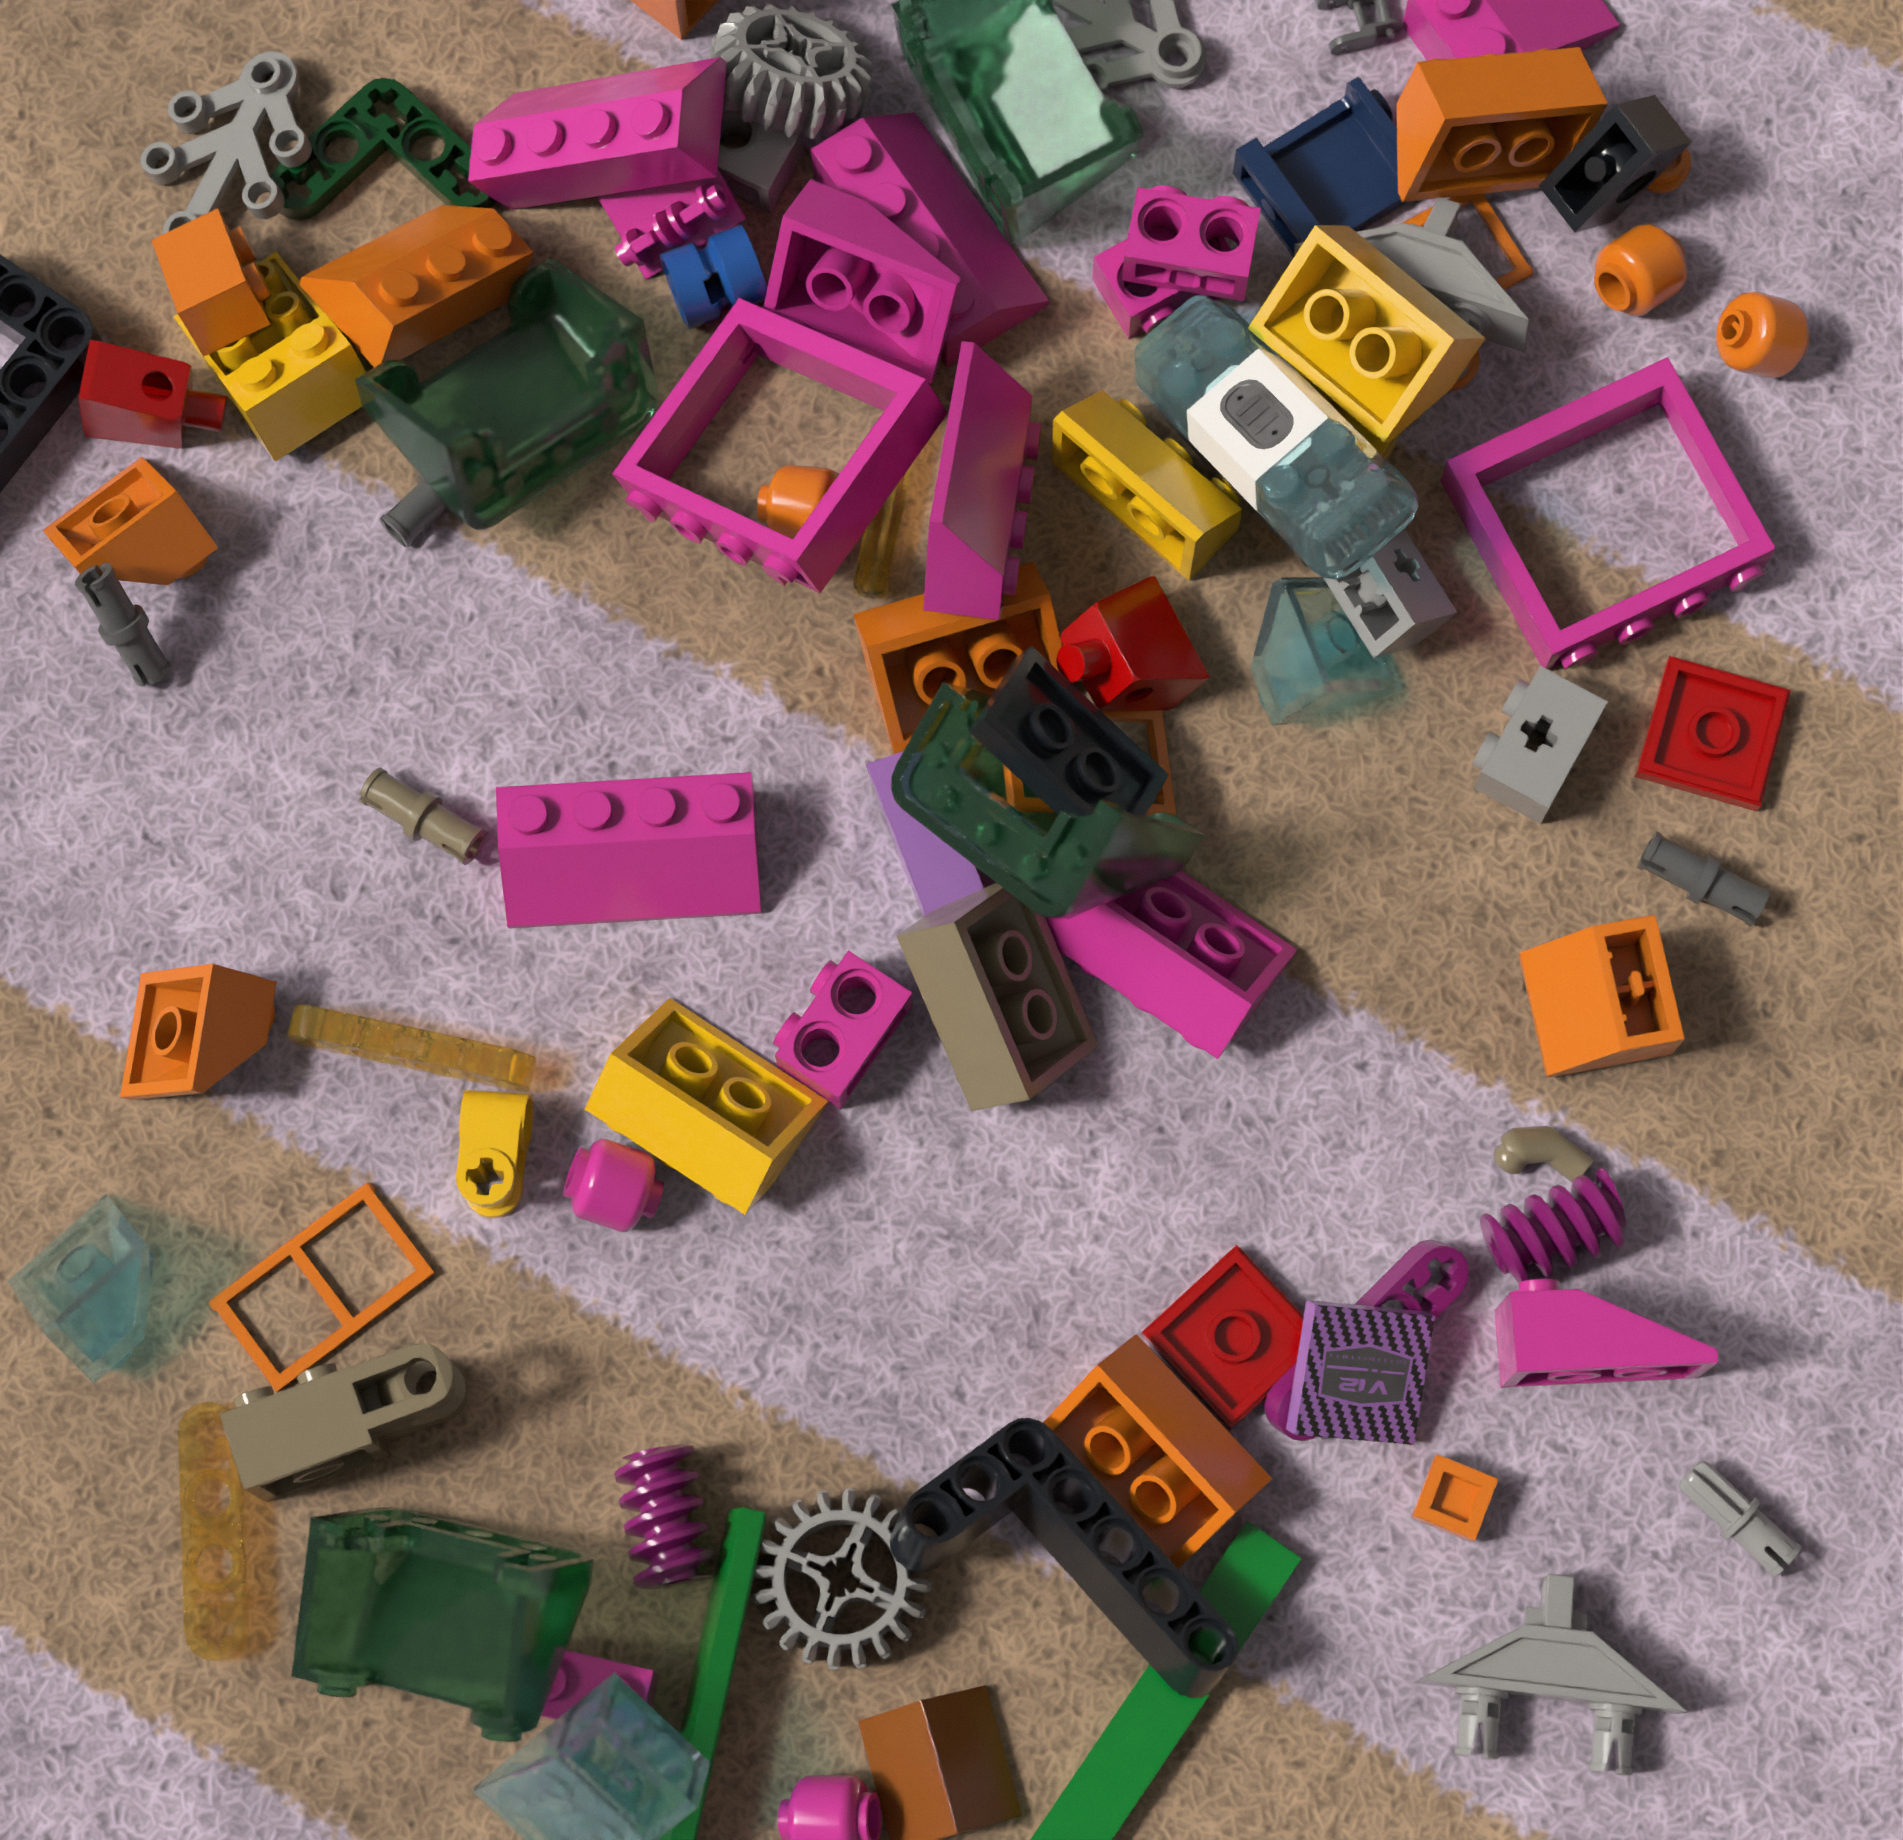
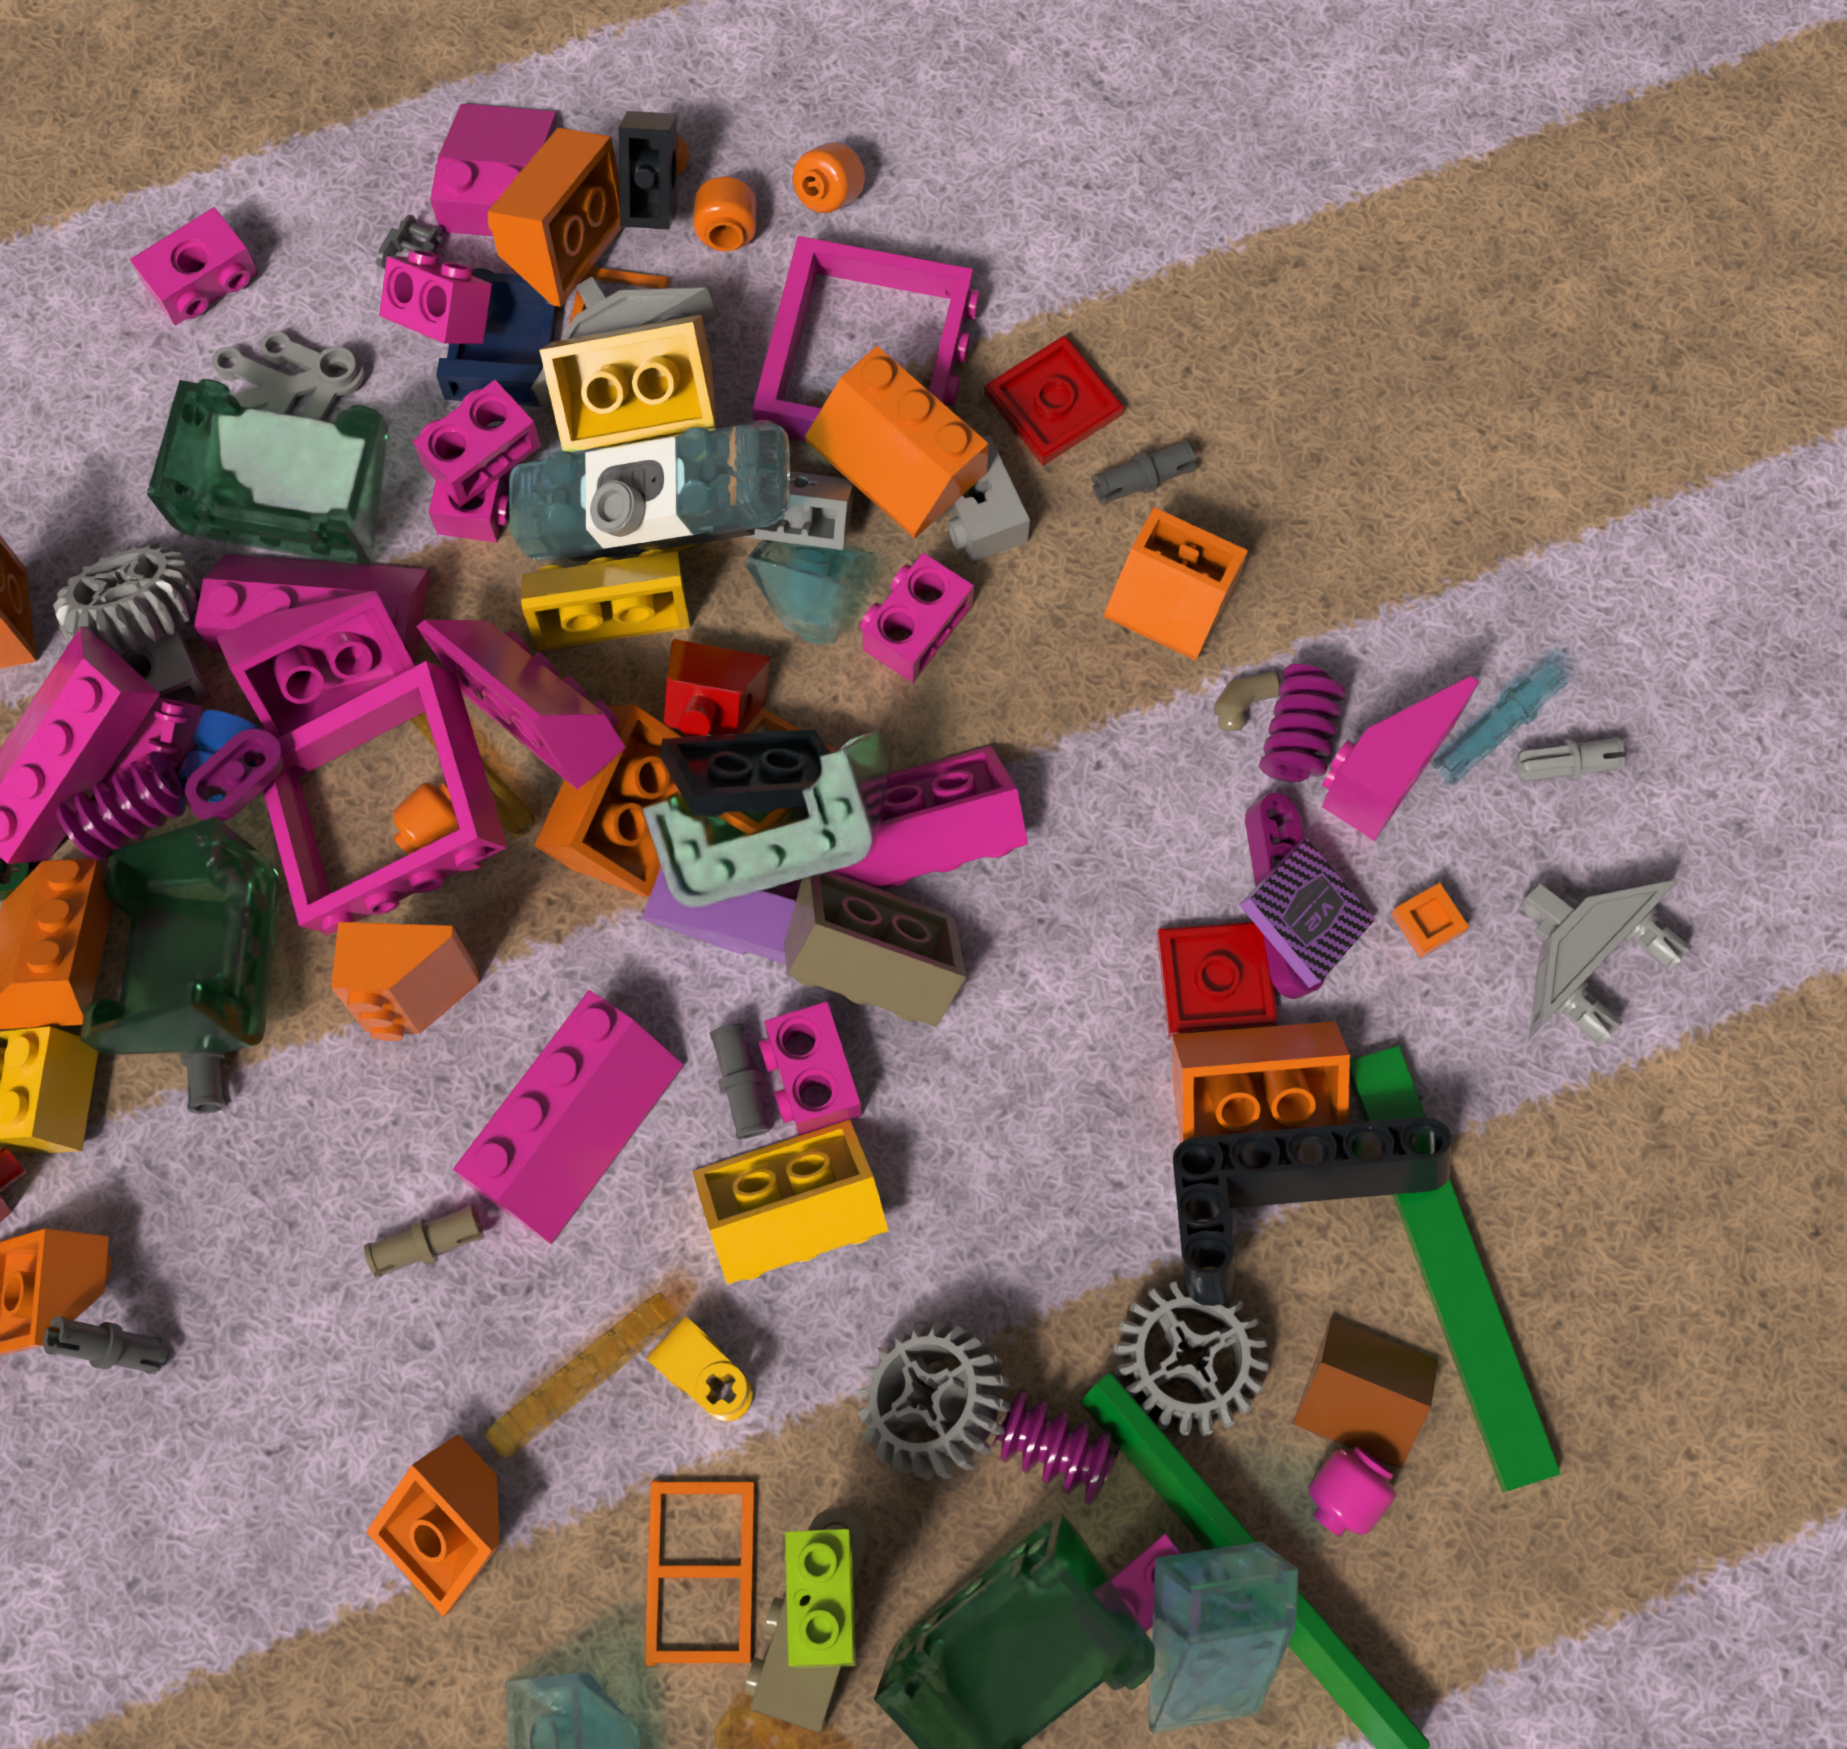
camera: 55 degrees left, 5 degrees down
(361, 1396) = (824, 1629): none -> lime window
(592, 235) = (124, 811): none -> magenta piece
(613, 1185) = (794, 1306): dark pink head -> none
(625, 598) = (400, 975): none -> orange slope
(625, 1394) = (904, 1400): none -> light grey gear
(695, 303) = (231, 776): none -> magenta plate
(783, 974) = (740, 1081): none -> dark grey pin
(1221, 423) = (617, 508): none -> light grey tile
(1311, 84) = (435, 298): none -> dark pink brick
(1369, 797) = (926, 621): none -> dark pink brick
(1515, 622) = (897, 442): none -> orange slope
(1724, 1420) = (1515, 708): none -> clear light blue pin

